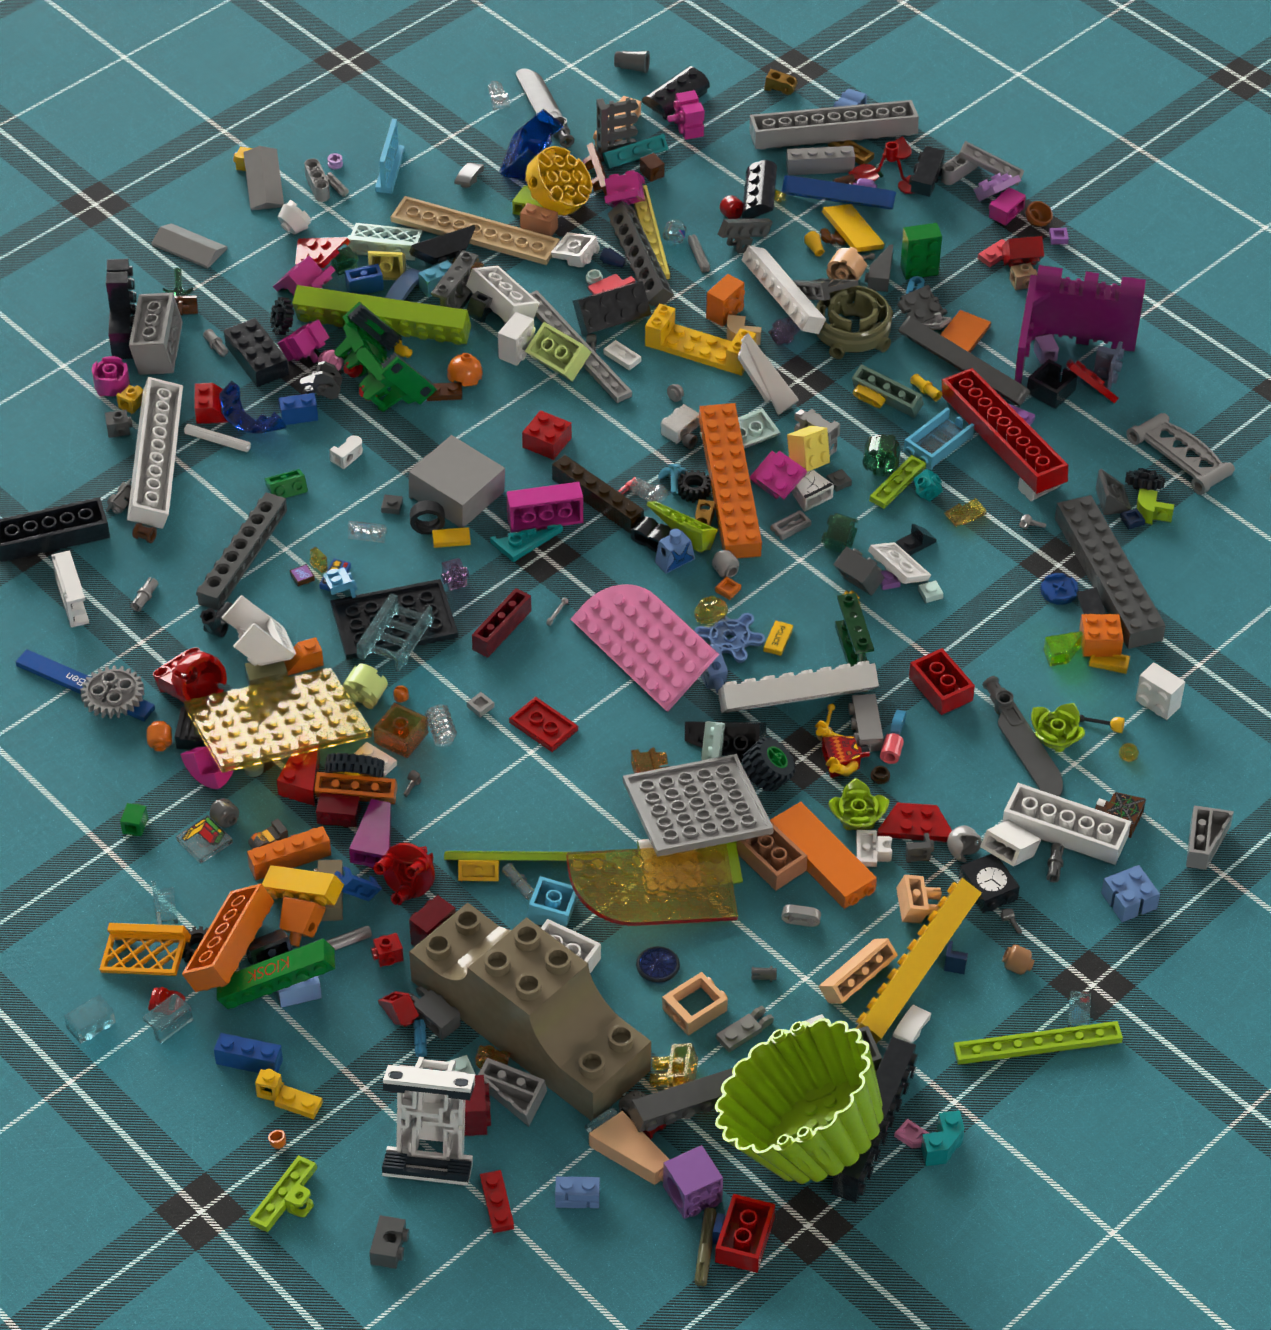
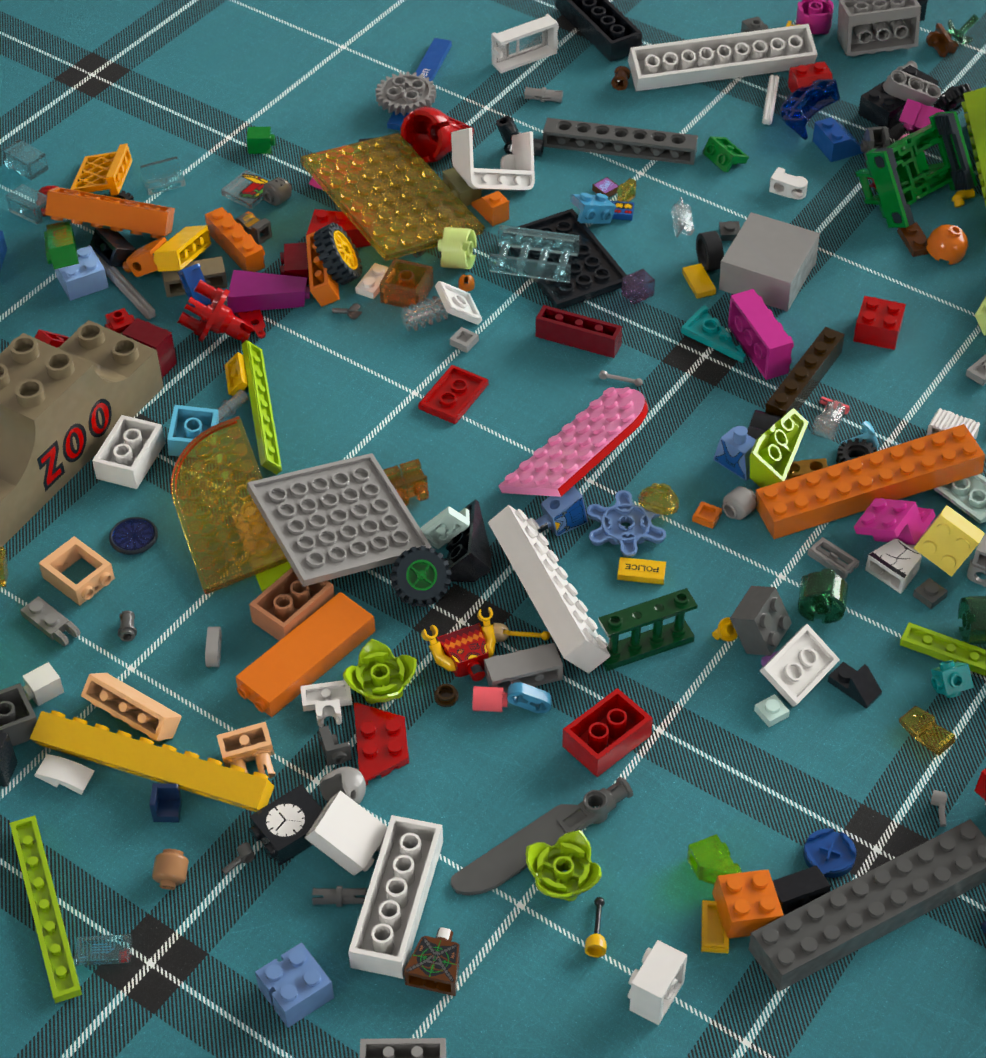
camera: 80 degrees right, 0 degrees up
(159, 735) = (363, 131): orange head -> none
(272, 333) = (911, 87): none -> light grey beam
(437, 697) = (458, 302): none -> white tile
(1128, 752) = (549, 957): clear yellow plate -> none

